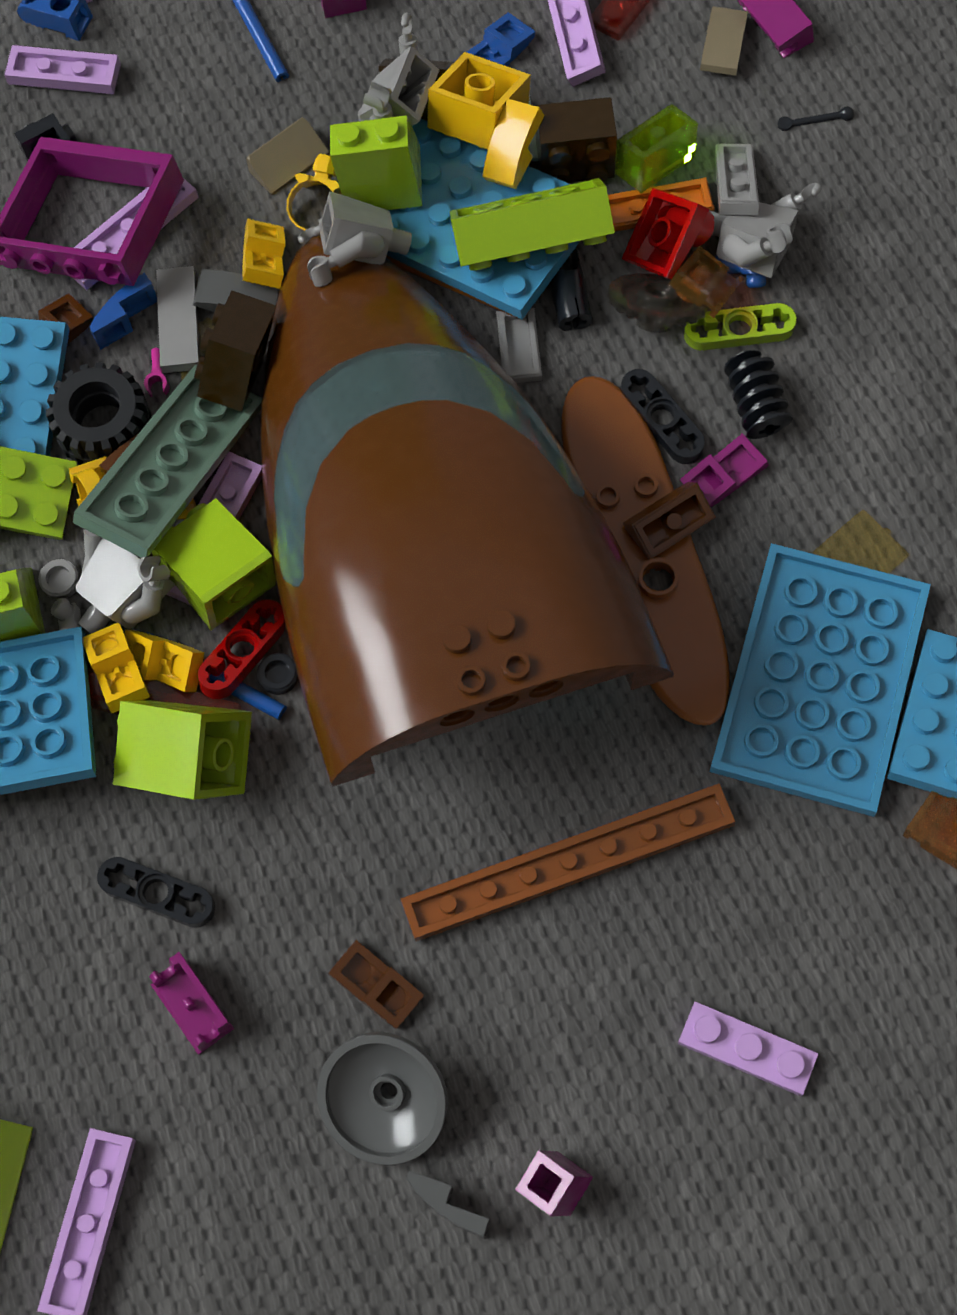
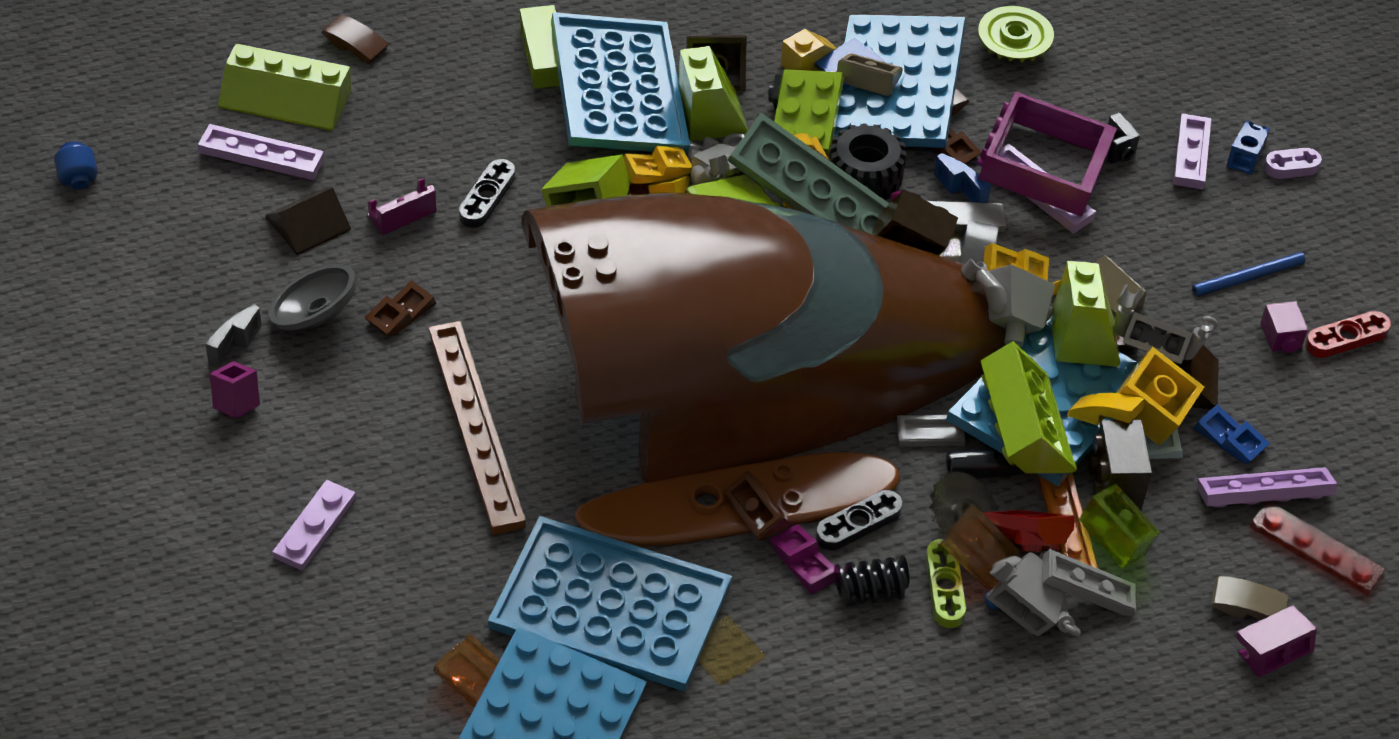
camera: 85 degrees right, 20 degrees down
(214, 1135) = (310, 220): none -> dark brown slope
(786, 123) = (1175, 691): black hinge -> none

